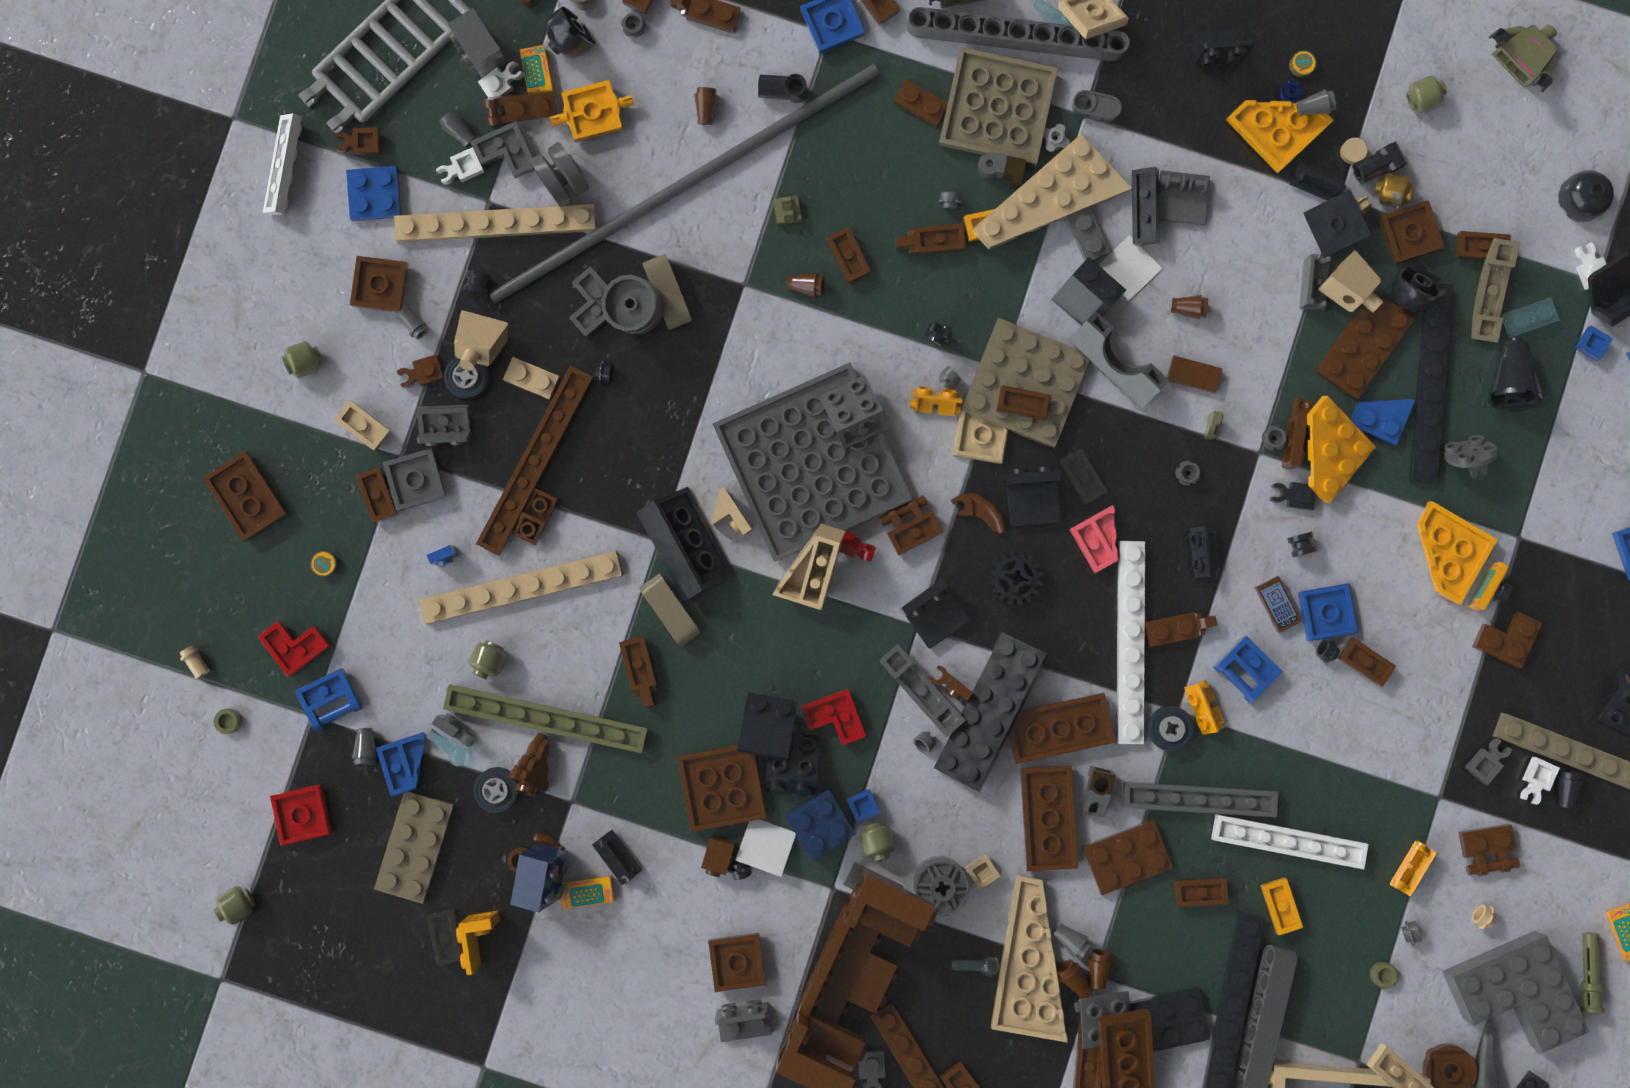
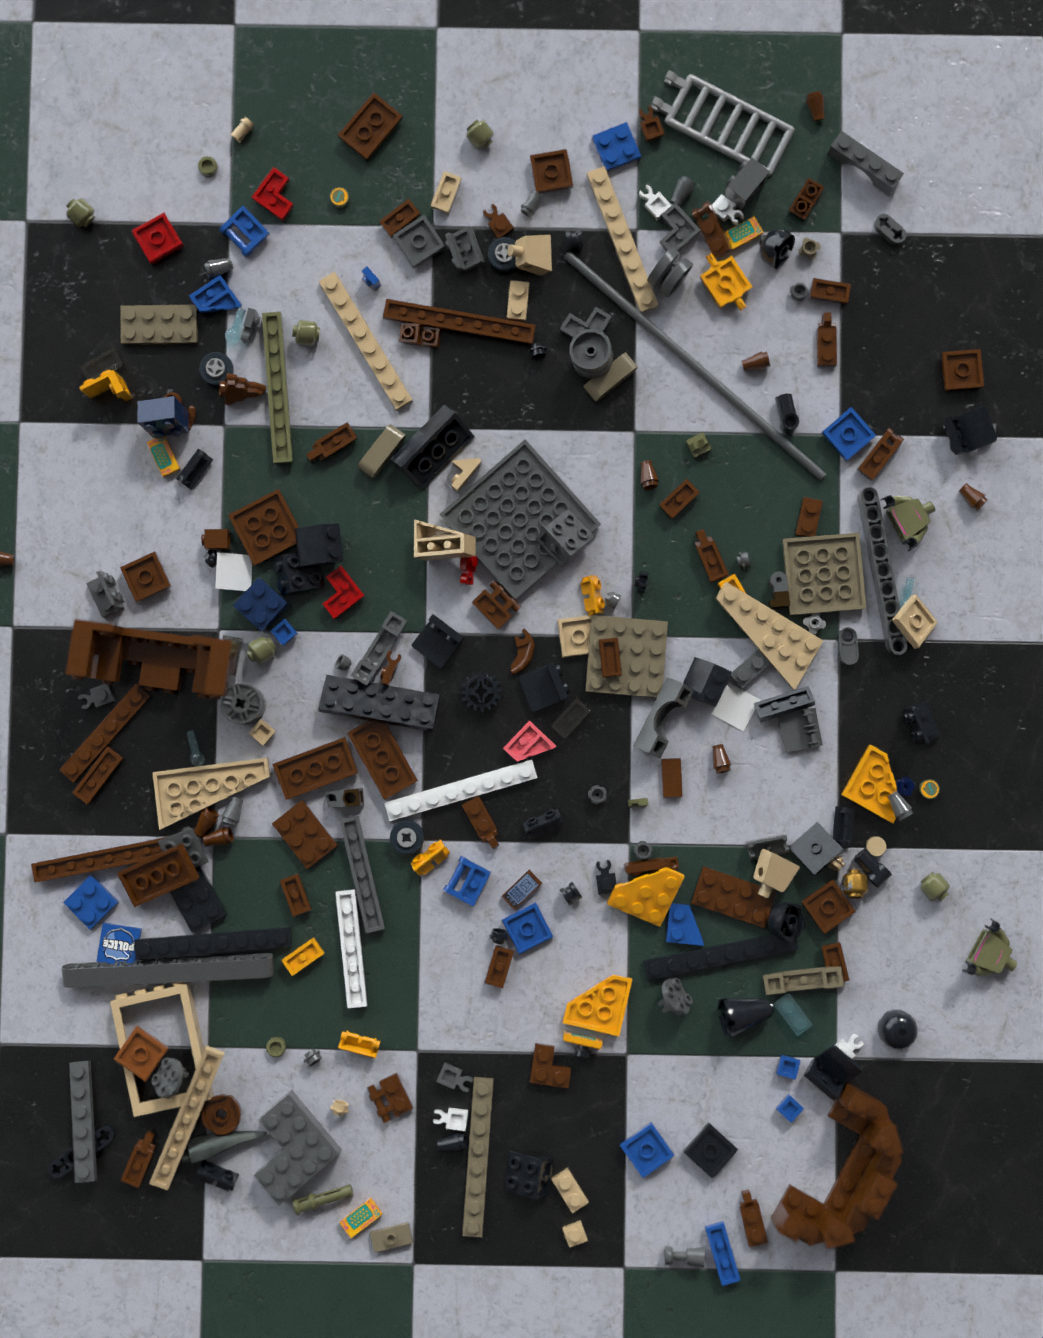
camera: 80 degrees right, 0 degrees up
(282, 164) = (616, 75): white plate -> none

